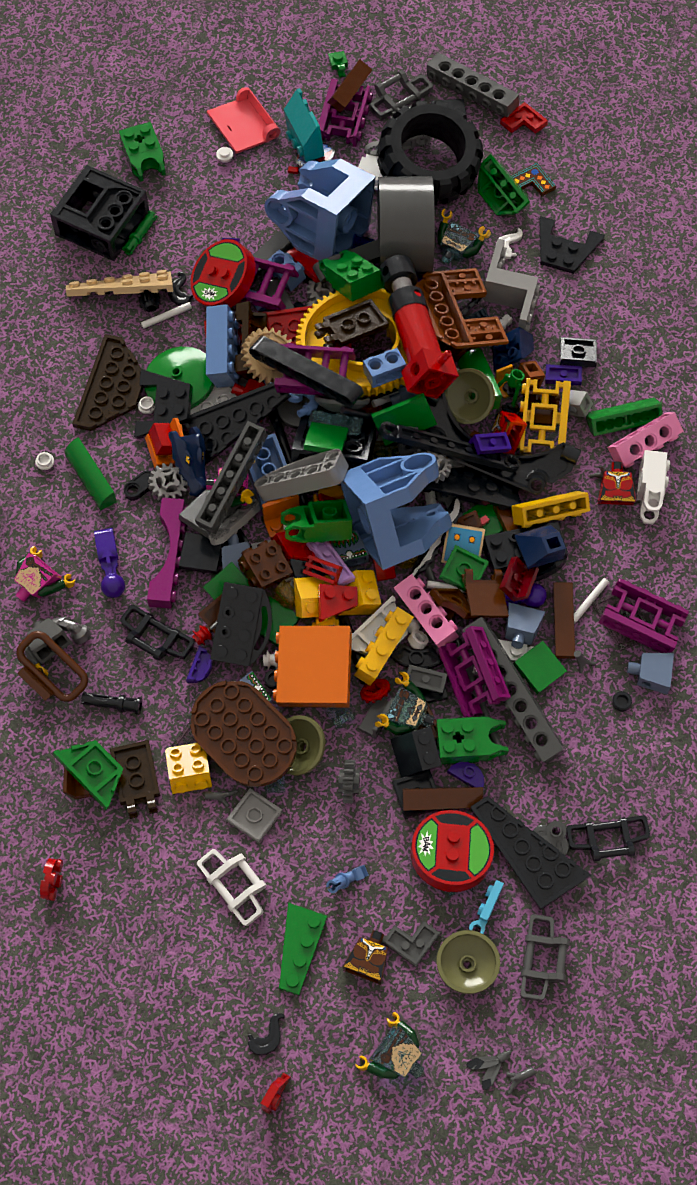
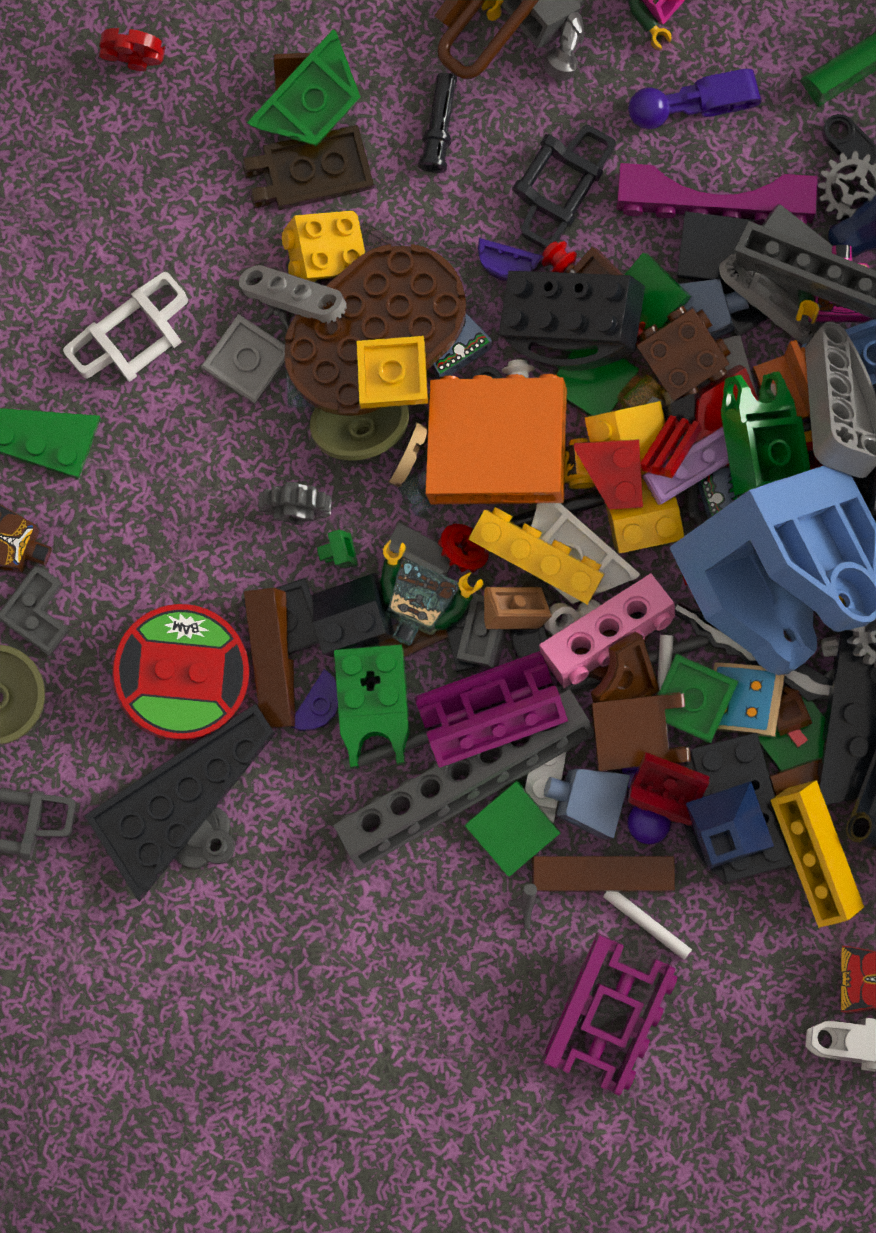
camera: 90 degrees right, 15 degrees up
(218, 781) = (292, 293): none -> light grey plate
(274, 717) = (392, 372): none -> yellow plate
(323, 716) = (408, 455): none -> tan tile
(342, 880) = (136, 501): medium blue piece -> none
(376, 760) = (339, 550): none -> green tile
(413, 658) = (515, 608): none -> medium nougat slope
(486, 909) = (84, 728): medium azure plate -> none
(621, 701) = (455, 971): black tile -> none
(622, 823) = (225, 907): black bar -> none
(653, 671) = (509, 1027): sand blue torso -> none

